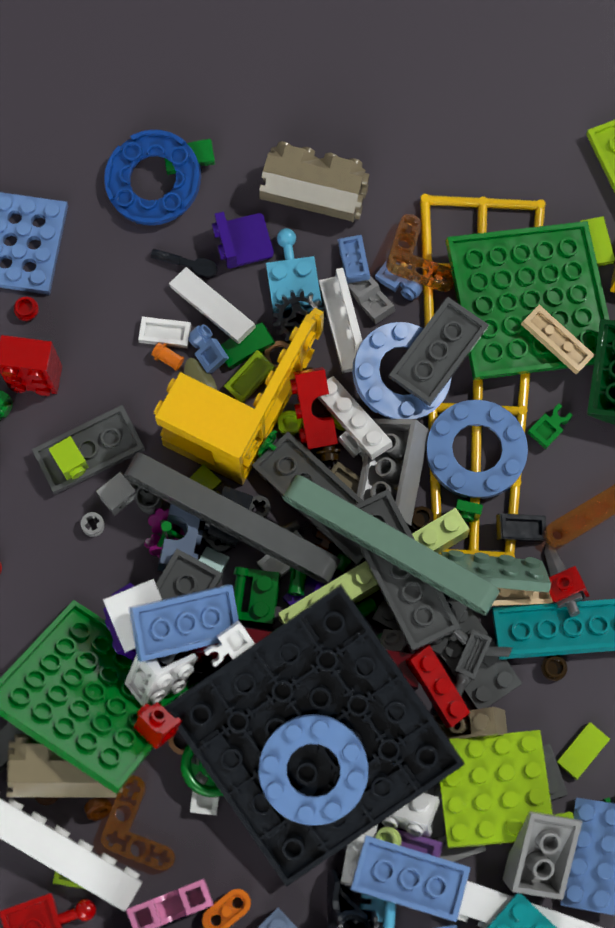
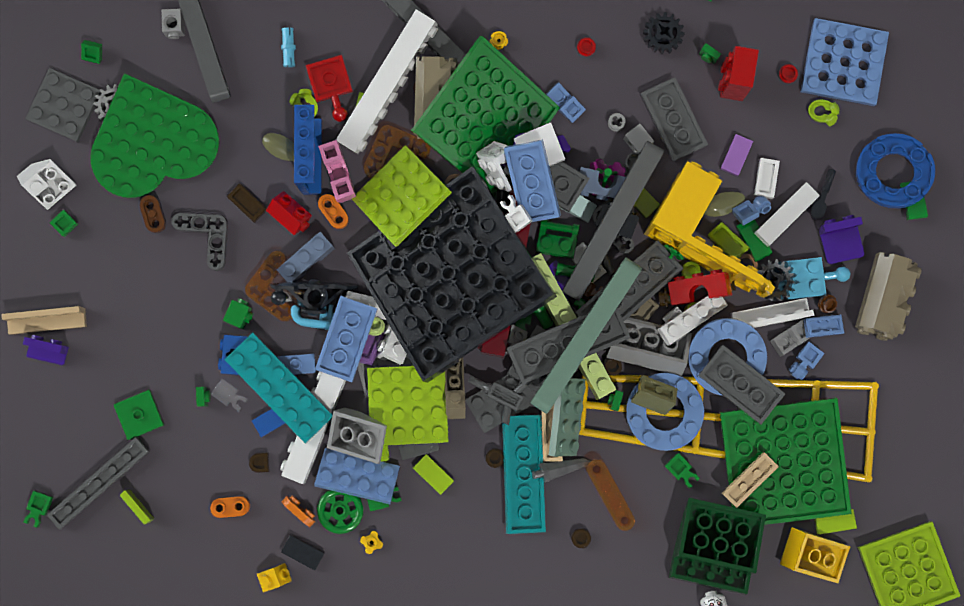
camera: 95 degrees right, 10 degrees up
(69, 258) = (828, 119): none -> lime piece
(69, 458) = (665, 103): lime brick -> none
(69, 588) = (568, 104): none -> medium blue slope
(98, 808) = (407, 122): reddish brown tile -> none
(134, 370) = (736, 155): none -> medium lavender tile
(156, 724) = (456, 162): red brick -> none
(167, 356) = (746, 180): orange pin -> none
(204, 811) = (401, 196): none -> lime plate
(313, 730) = (450, 278): medium blue plate -> none
(325, 254) = (827, 303): none -> reddish brown plate
(406, 257) = (823, 366): clear orange beam -> none
(438, 686) = (481, 366): red plate -> none
(458, 458) = (655, 395): none -> olive panel
(521, 527) = (602, 441): black tile -> none
(566, 584) = (556, 472): red bracket -> none

